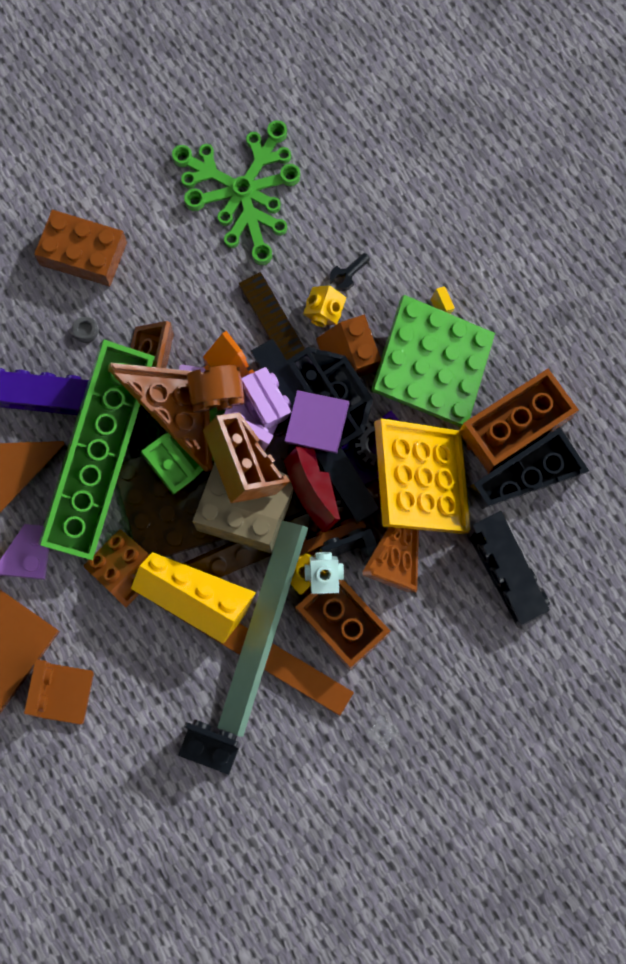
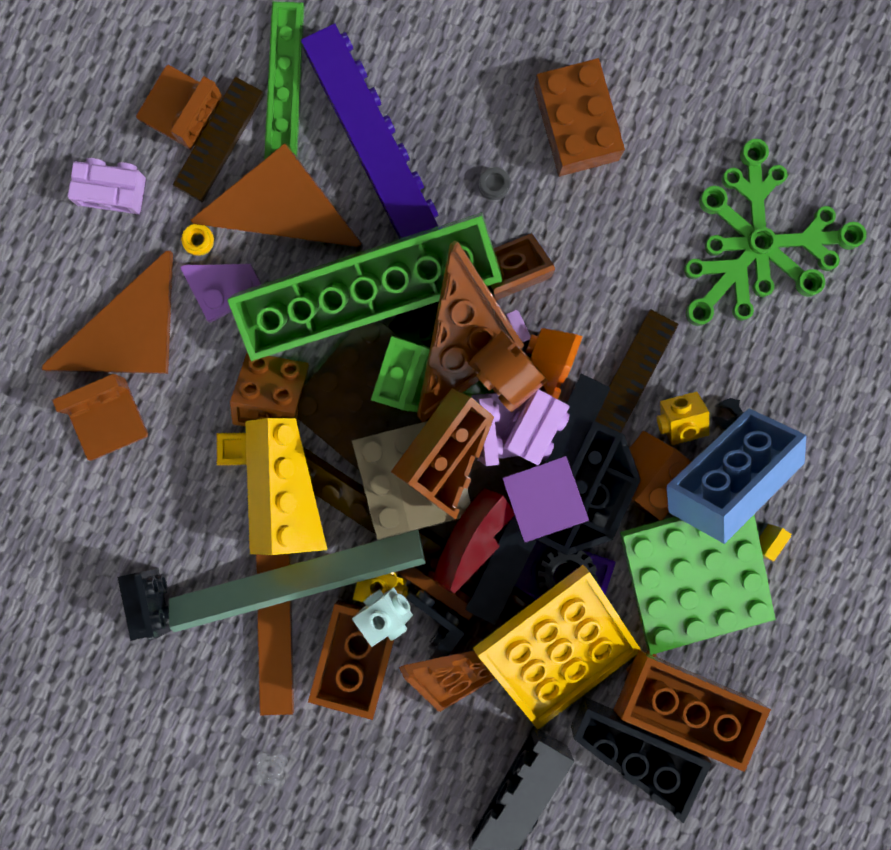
camera: 55 degrees right, 10 degrees up
(143, 617) = (231, 449): none -> yellow tile
(381, 293) = (736, 475): none -> medium blue brick

